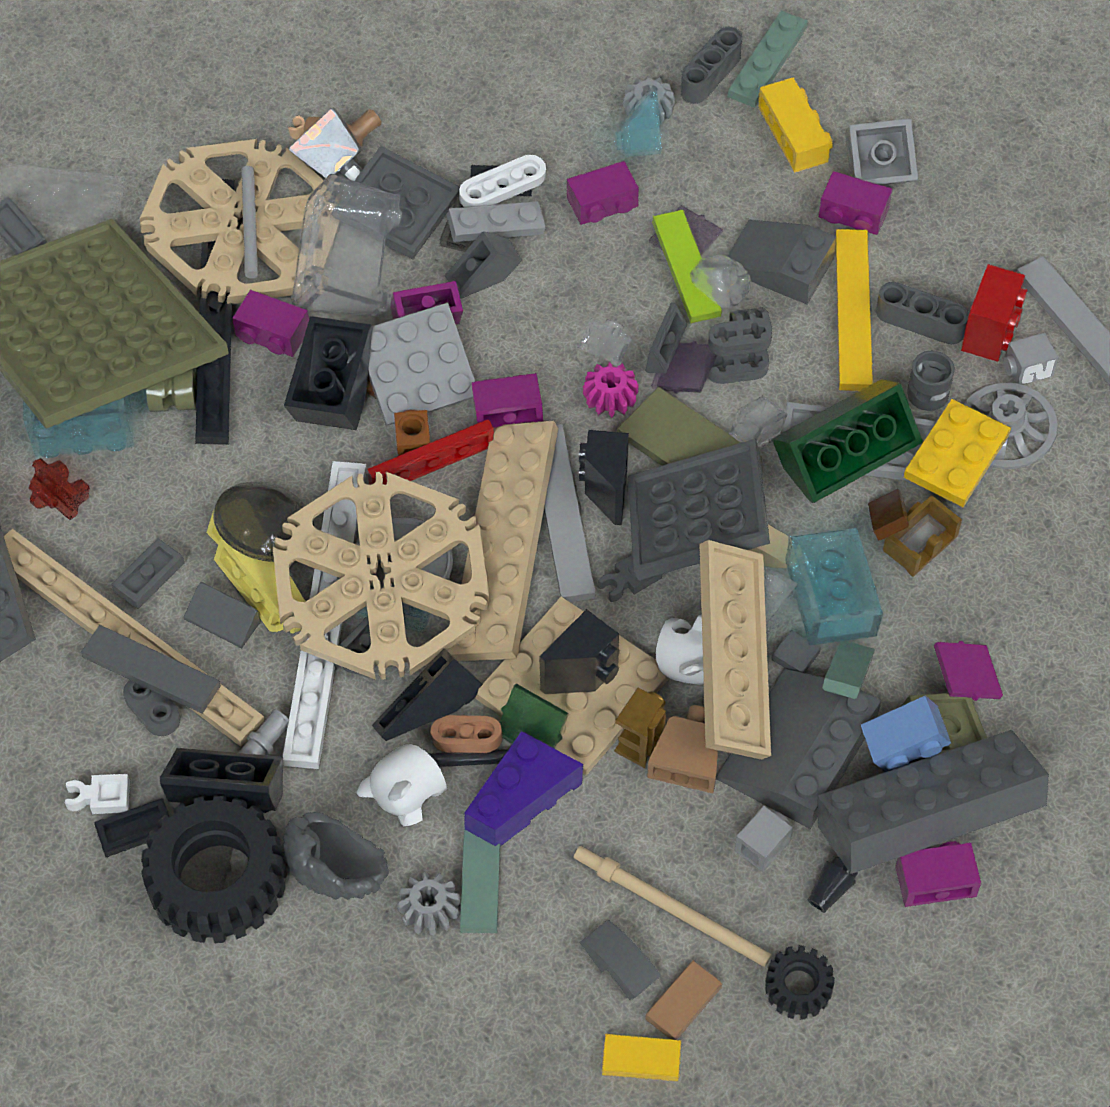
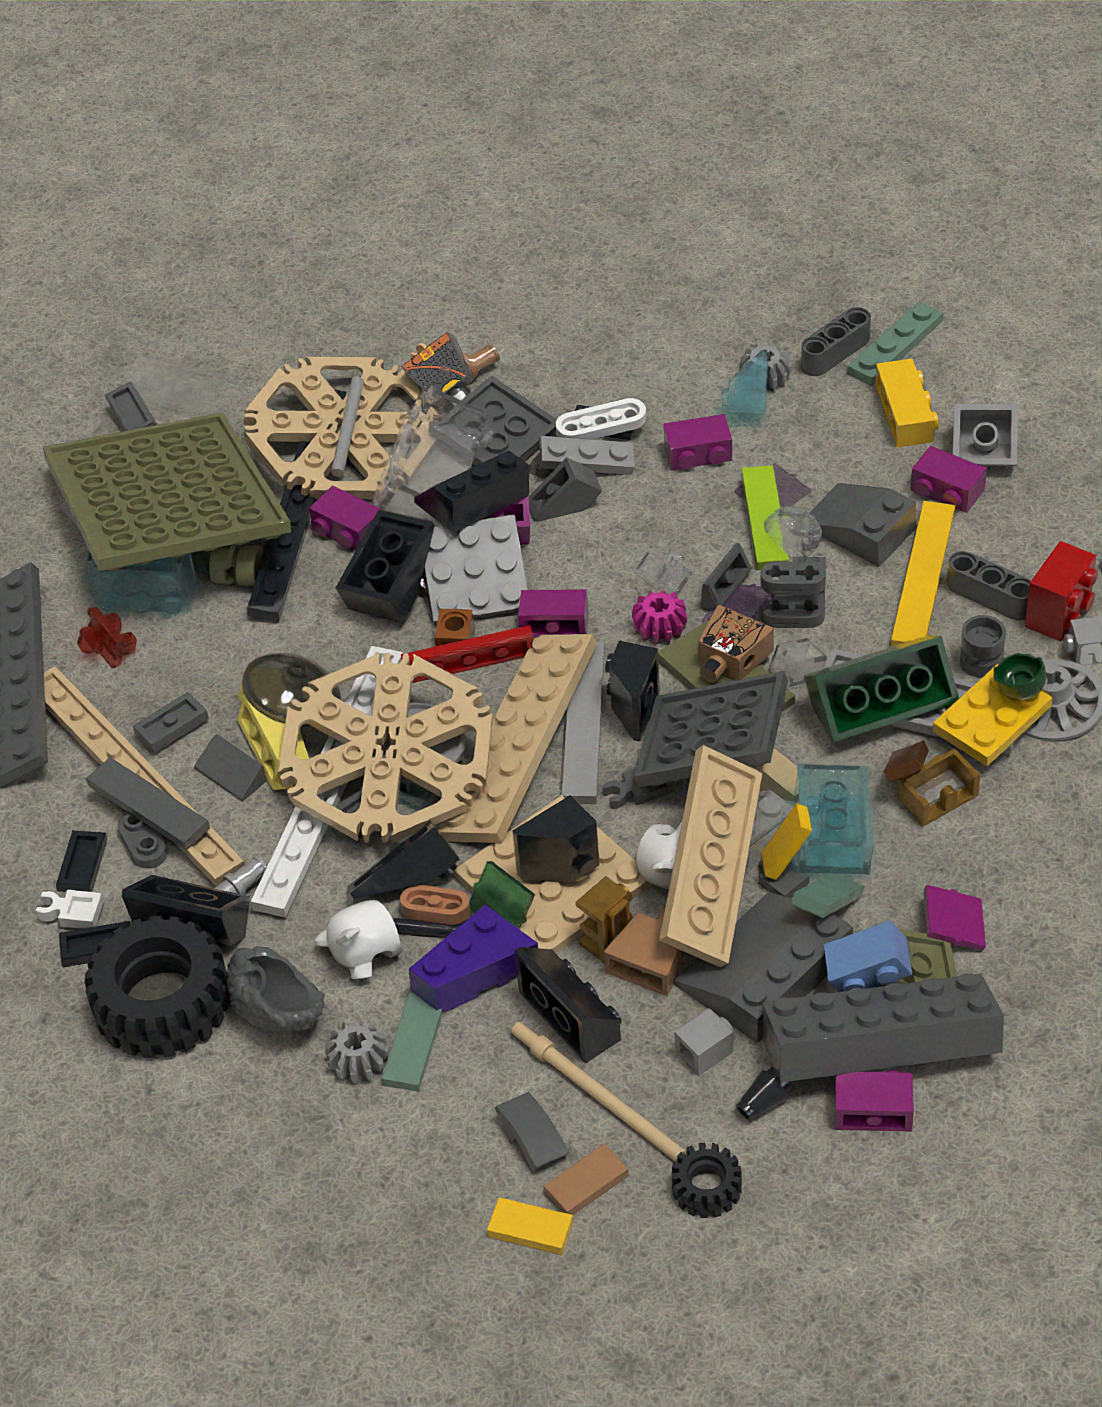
camera: 15 degrees right, 10 degrees down
(95, 740) = (81, 861): none -> black tile
(404, 283) = (477, 492): none -> black slope
(623, 819) = (566, 1002): none -> black slope
(692, 413) = (733, 645): none -> medium nougat torso
(798, 619) = (786, 841): none -> yellow tile
(982, 414) = (1020, 676): none -> dark green hair

